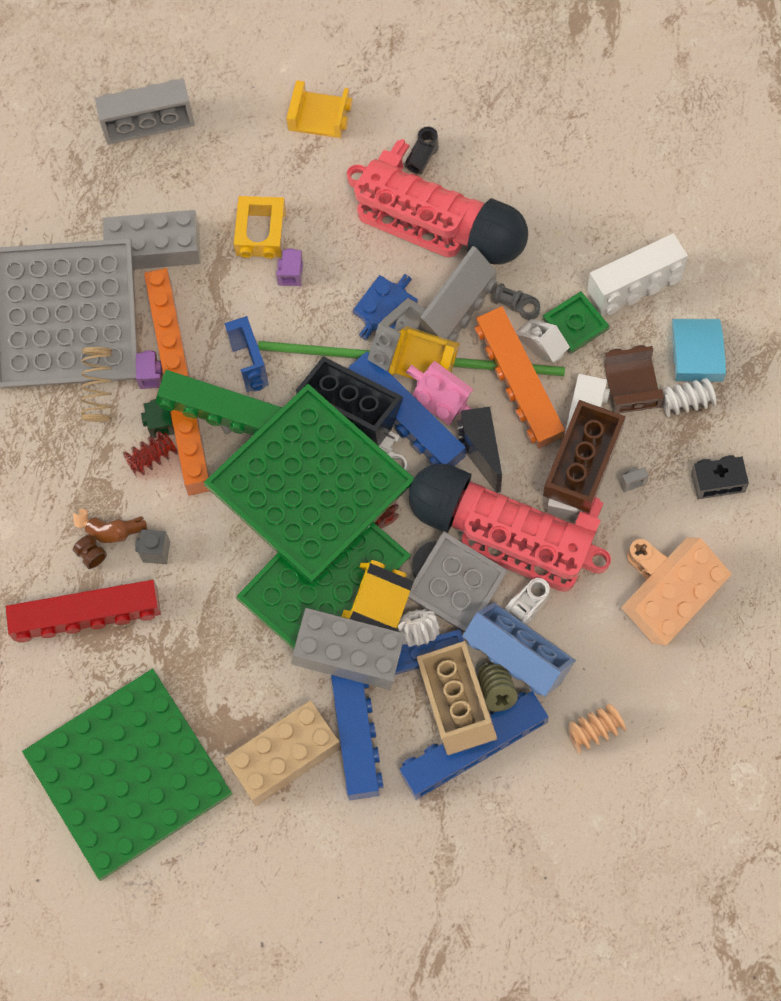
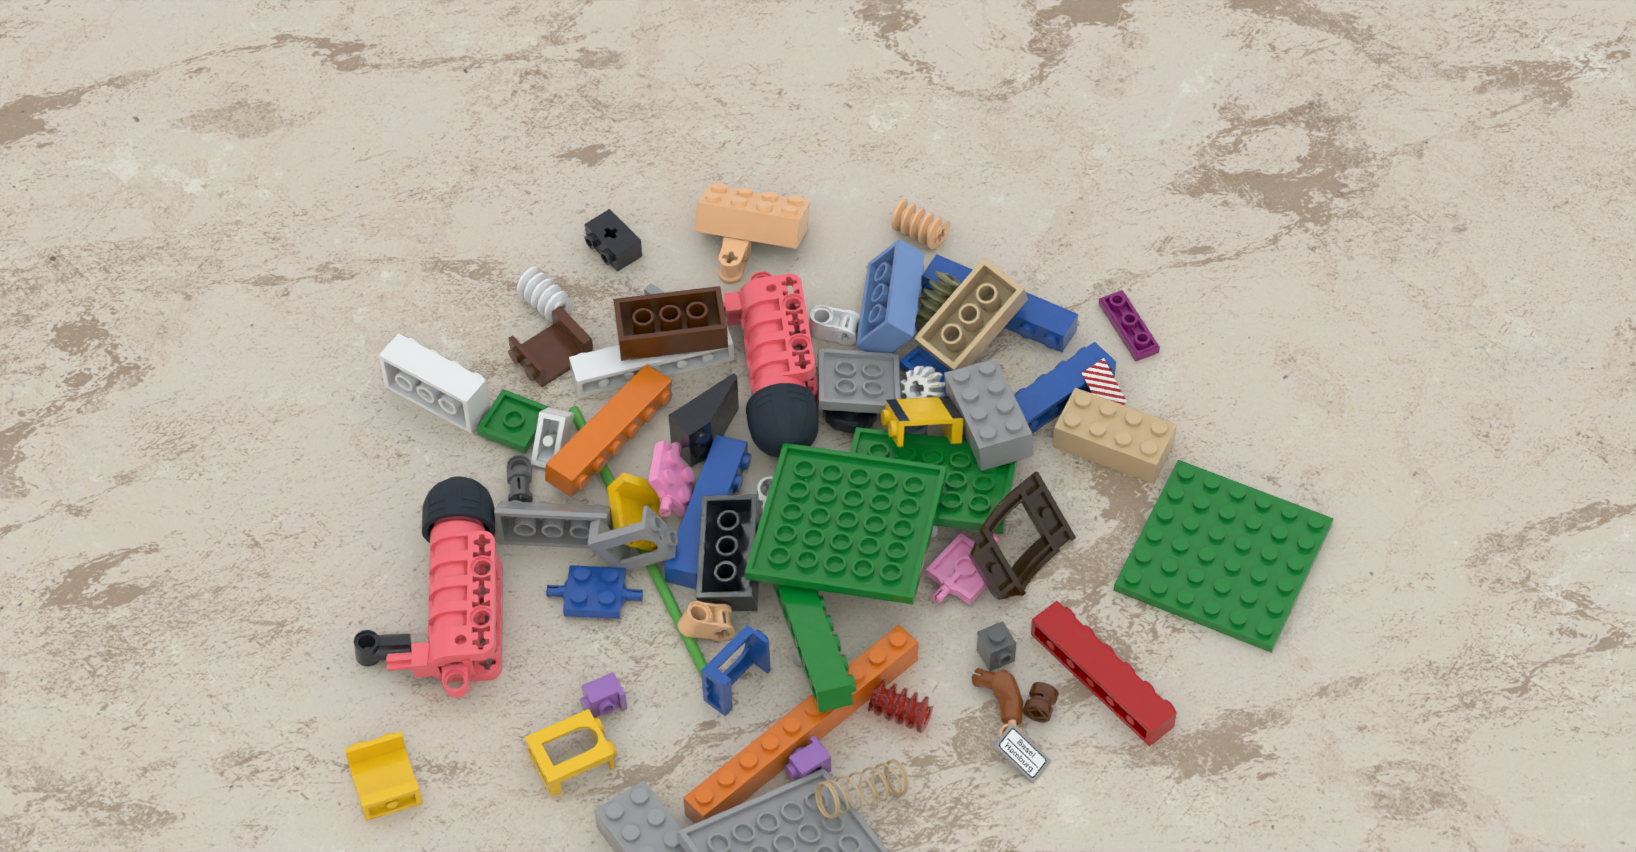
camera: 125 degrees left, 15 degrees down
(59, 515) = (1022, 753): none -> sticker
(157, 419) = (856, 722): dark green brick -> none
(225, 641) = (1050, 524): none -> dark brown wedge
(234, 564) = (956, 572): none -> bright pink plate
(302, 363) = (706, 620): none -> light nougat piece
(333, 774) = (1103, 383): none -> sticker
(408, 847) = (1129, 325): none -> magenta tile
(698, 350) = (484, 310): medium azure slope -> none

